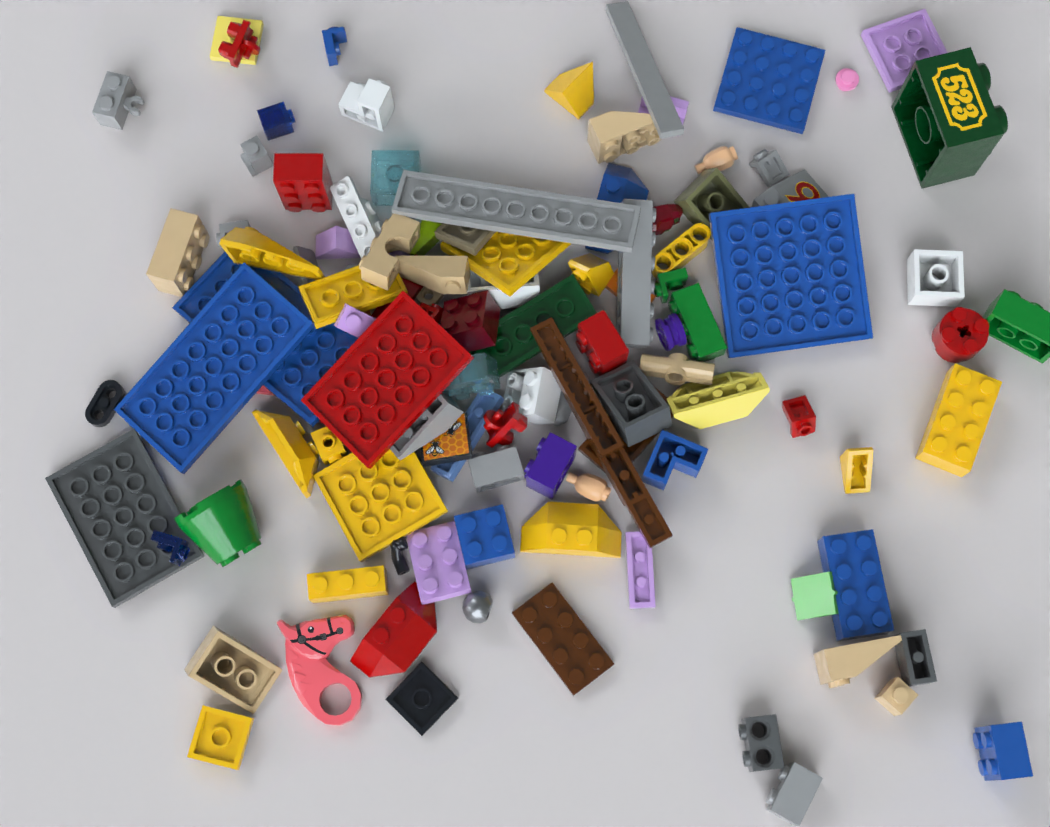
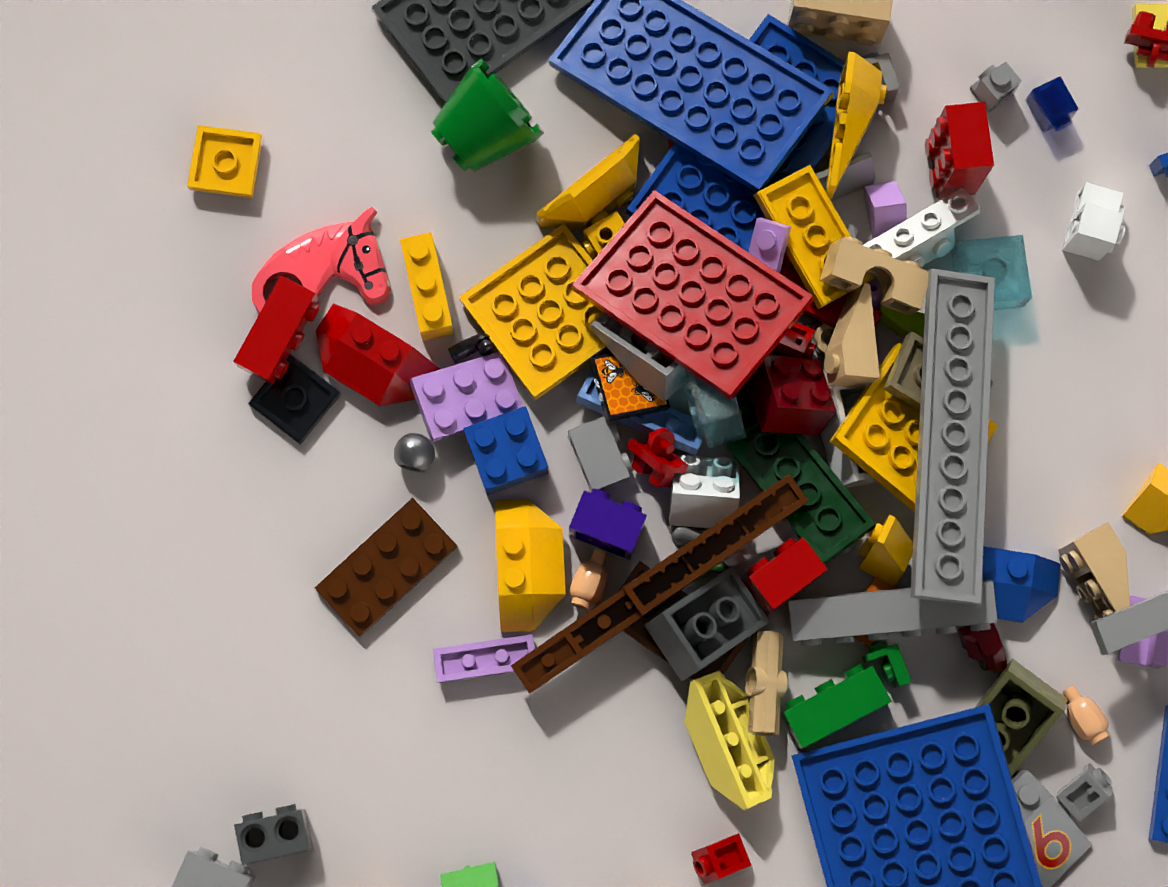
camera: 80 degrees right, 5 degrees up
(168, 542) = (453, 61): clear blue bracket -> none
(232, 670) = (307, 162): tan slope -> none
(368, 703) = (277, 330): none -> red brick
(670, 332) = (817, 670): dark purple wheel -> none
(673, 453) = (644, 681): blue brick -> none
(688, 244) = (954, 680): yellow beam -> none

